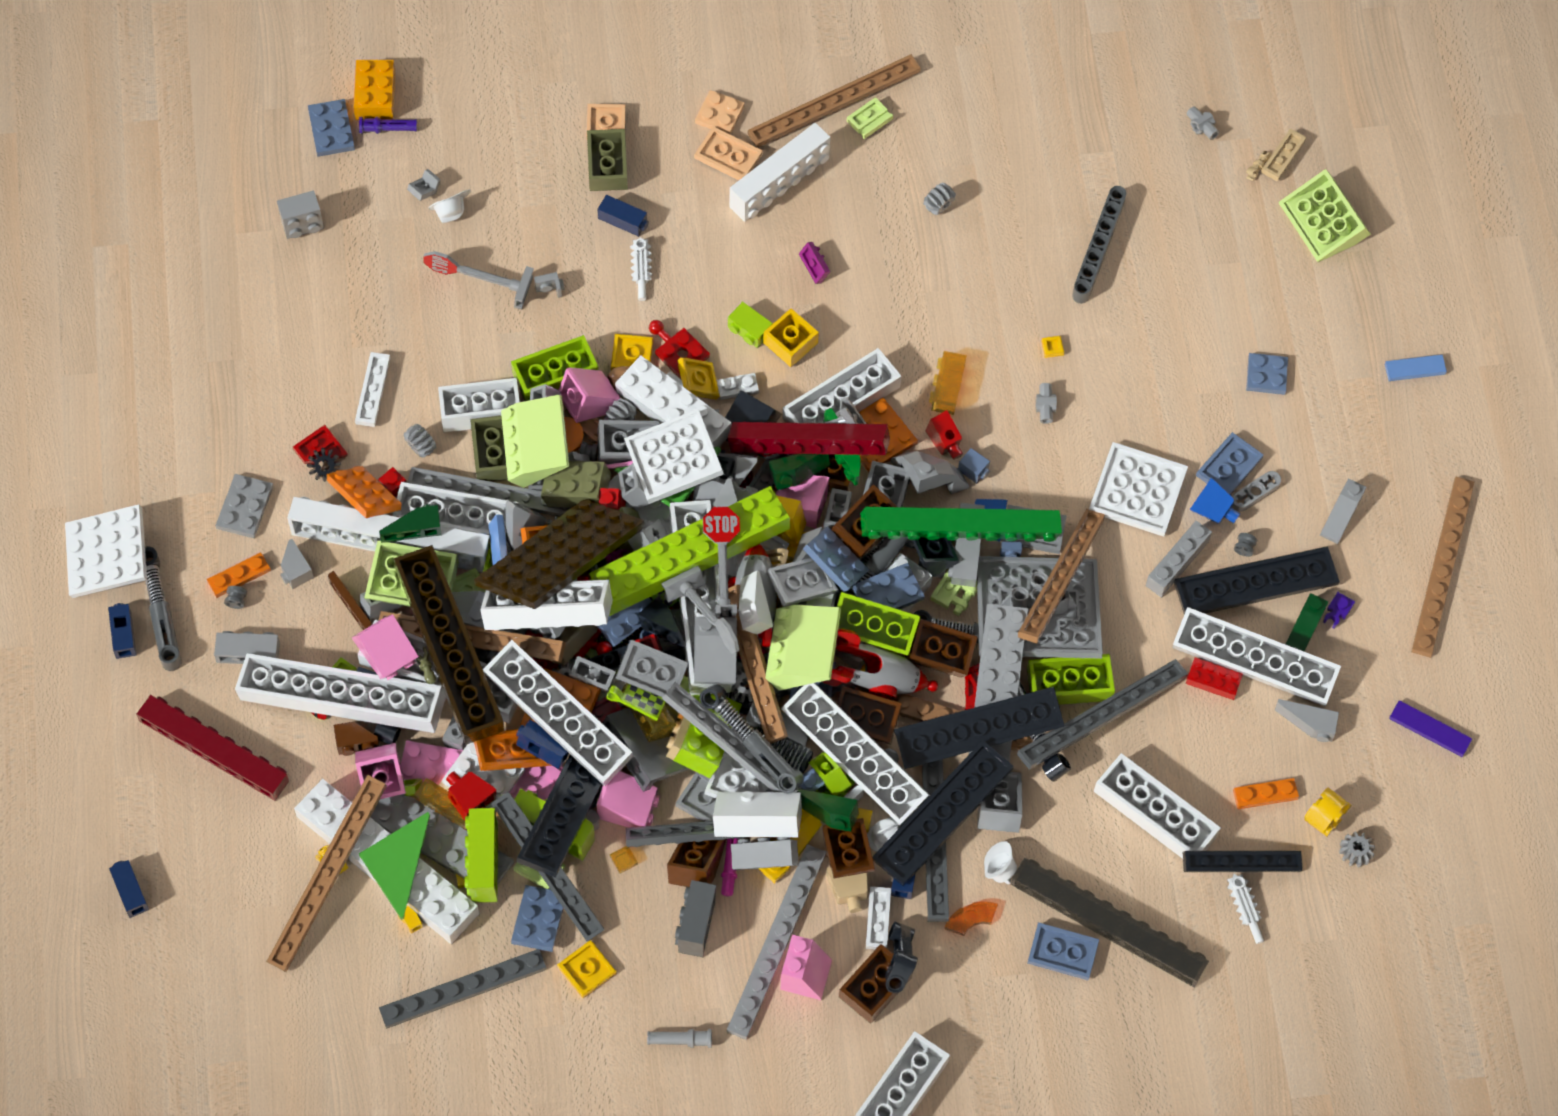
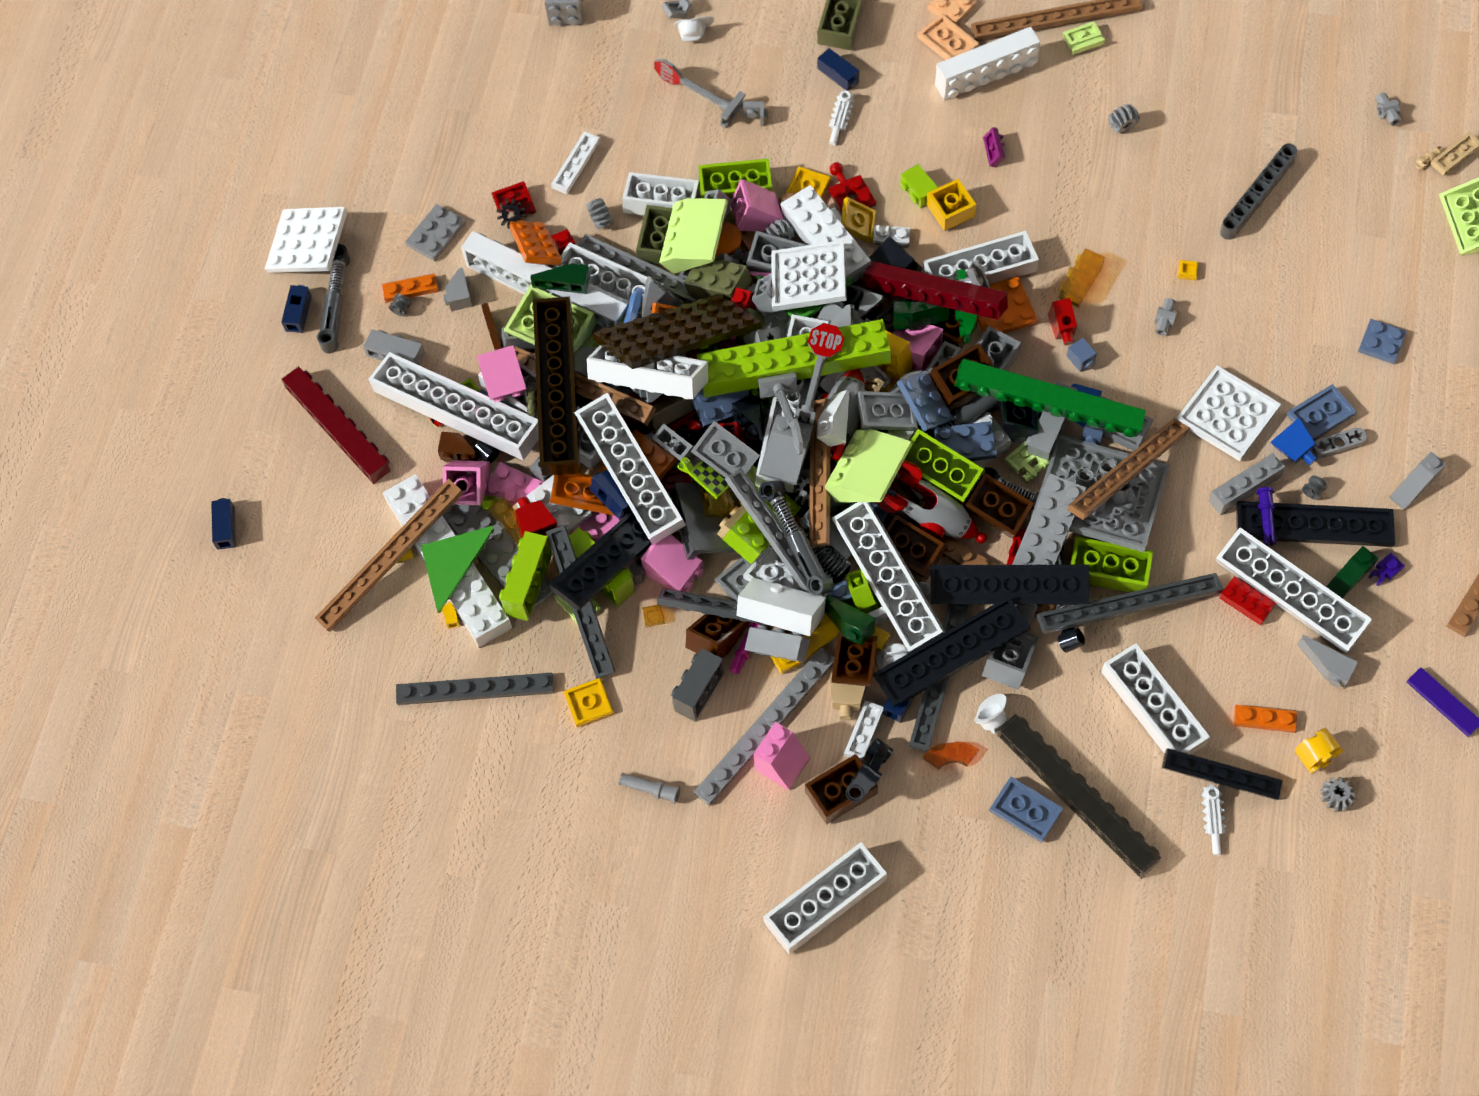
camera: 25 degrees right, 0 degrees up
(537, 919) = (559, 647): sand blue plate -> none
(930, 472) = (1038, 348): light grey brick -> none
(1206, 578) = (1266, 508): none -> dark purple pin

